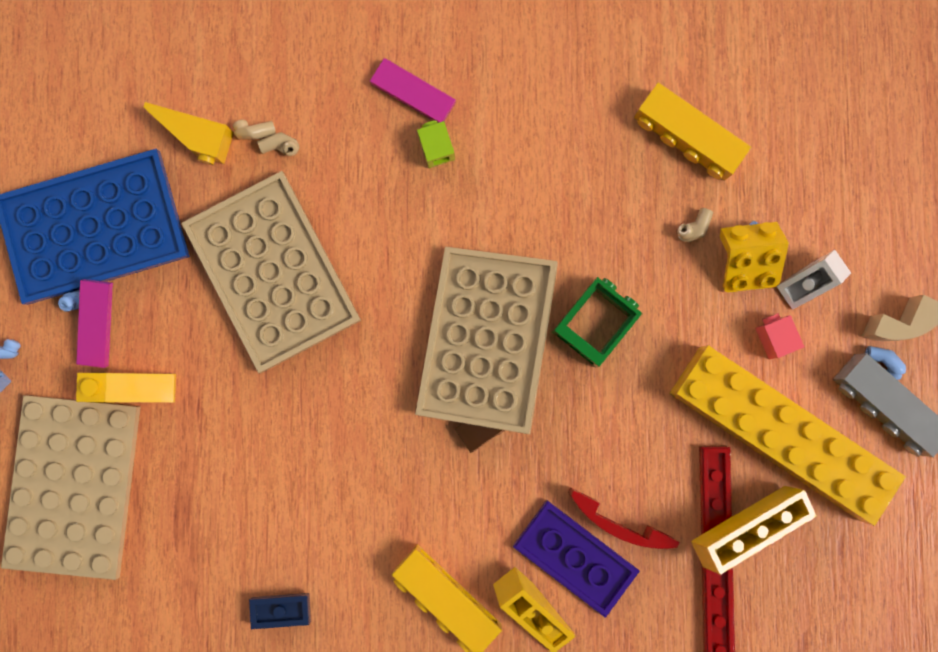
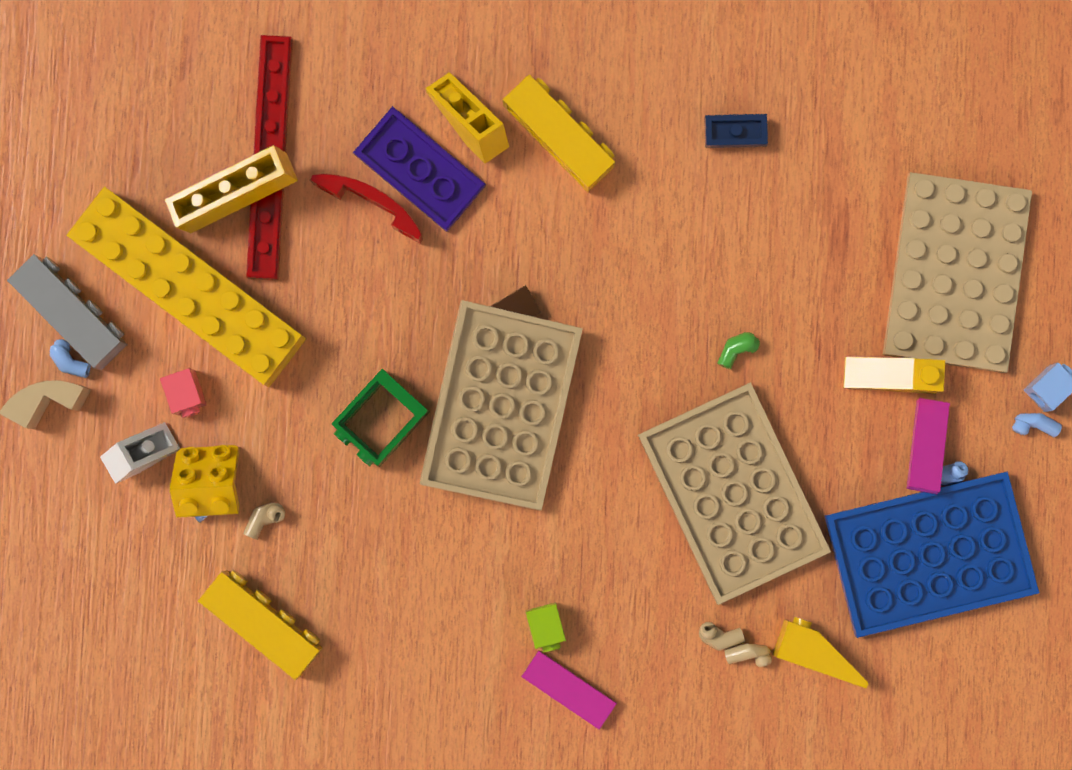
camera: 175 degrees left, 0 degrees up
(272, 407) = (736, 345): none -> bright green arm

